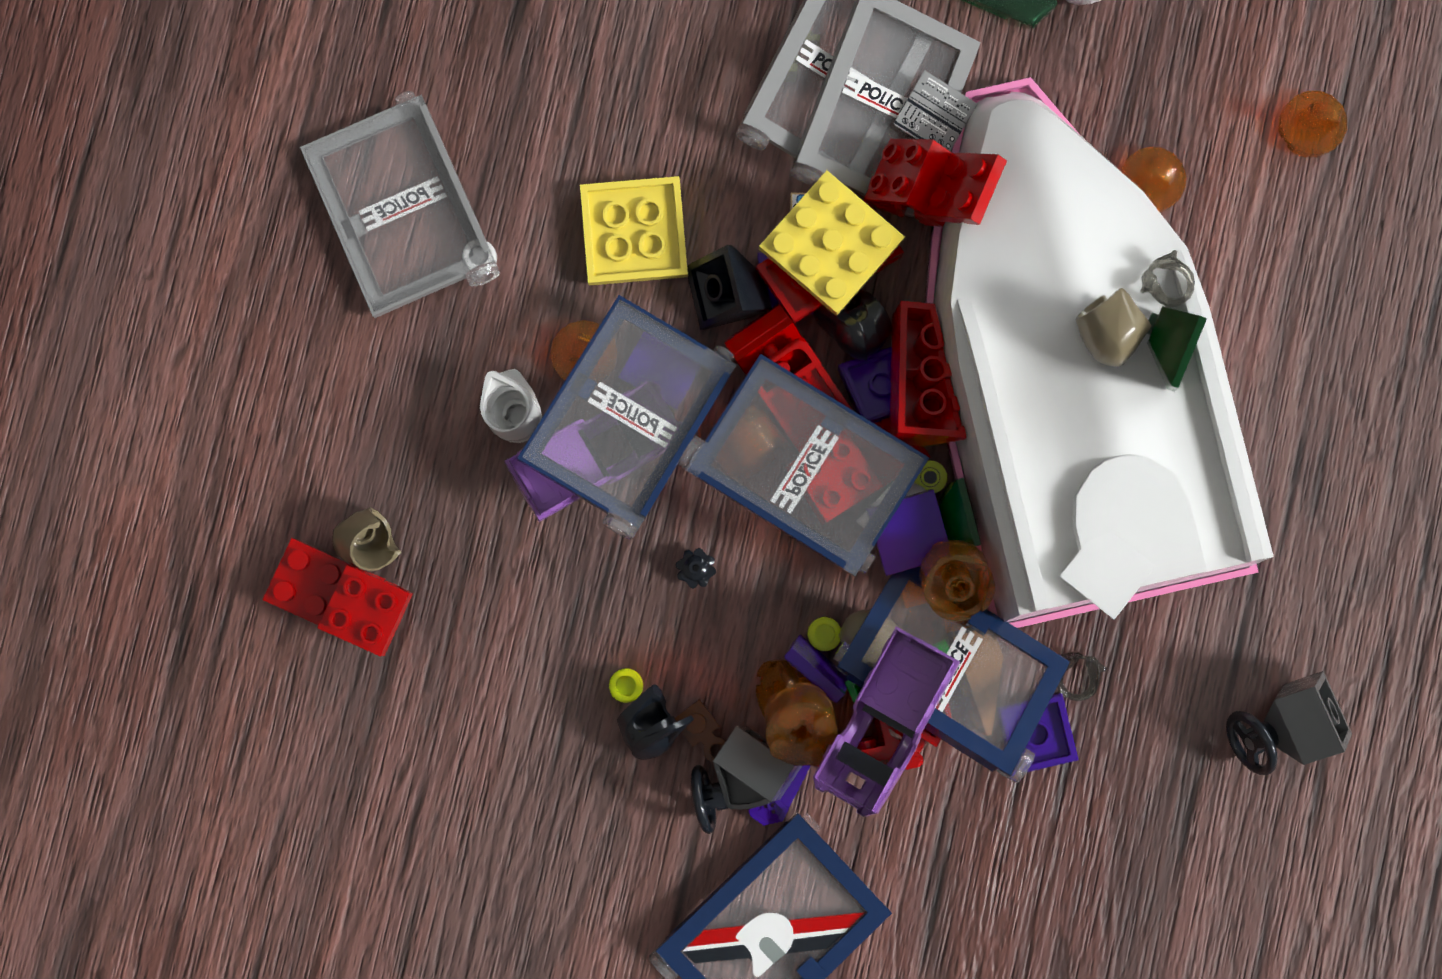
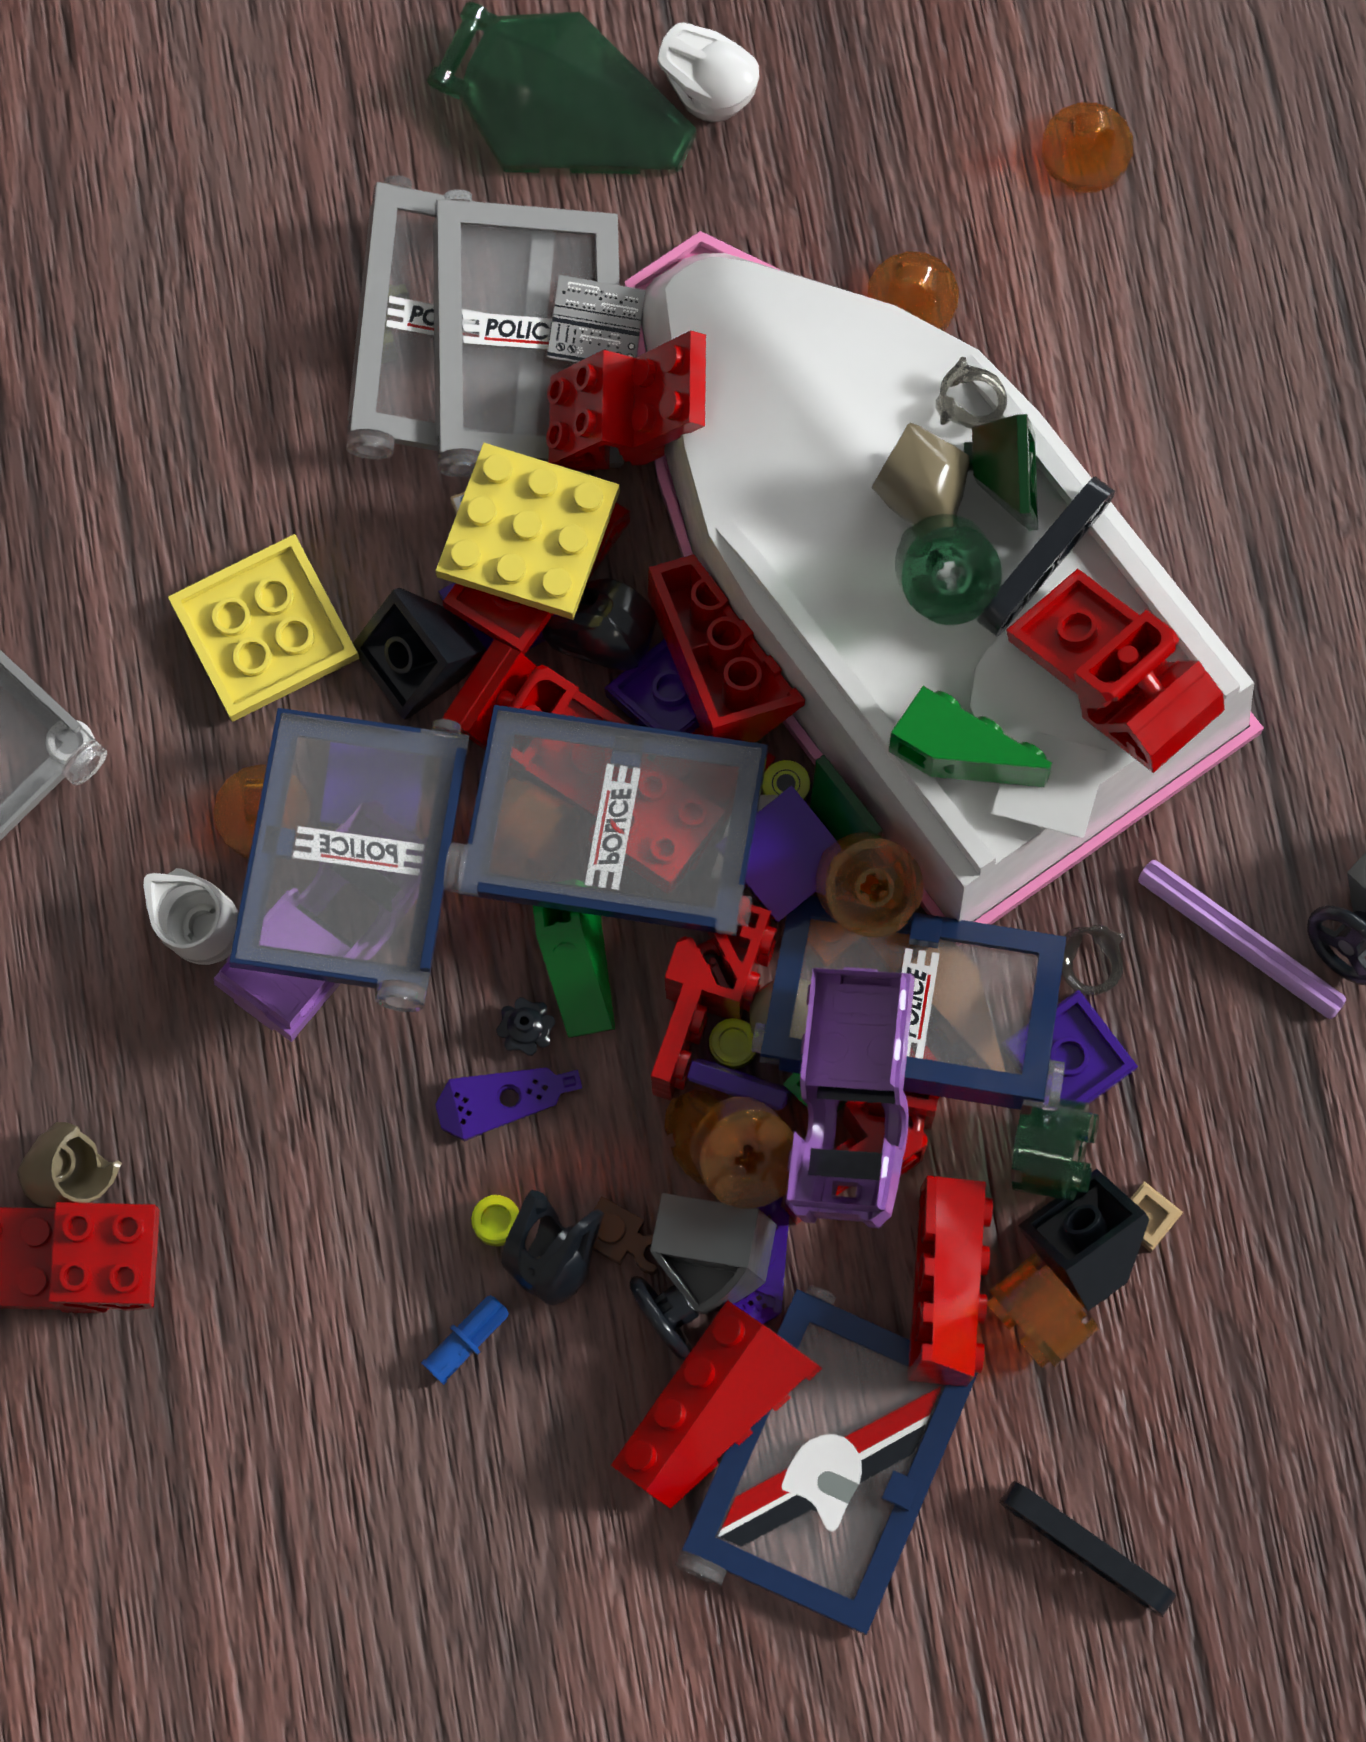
camera: 20 degrees left, 10 degrees down
(575, 754) = (465, 1338): none -> blue axle
(649, 608) = (484, 1099): none -> dark purple piece
(713, 868) = (711, 1403): none -> red wedge
(743, 547) = (577, 968): none -> green slope
(816, 592) = (697, 993): none -> red piece
(896, 851) = (948, 1281): none -> red wedge
(949, 898) = (1042, 1311): none -> clear orange brick
(999, 799) = (1053, 1150): none -> clear green brick
(999, 859) = (1089, 1239): none -> black slope
(1042, 858) = (1160, 1212): none -> tan tile
(1055, 521) = (956, 745): none -> green slope
(1121, 406) = (972, 579): none -> clear green brick
(1173, 416) = (1046, 556): none -> black beam
(1182, 704) = (1242, 939): none -> lavender axle
(1190, 517) = (1119, 669): none -> red piece

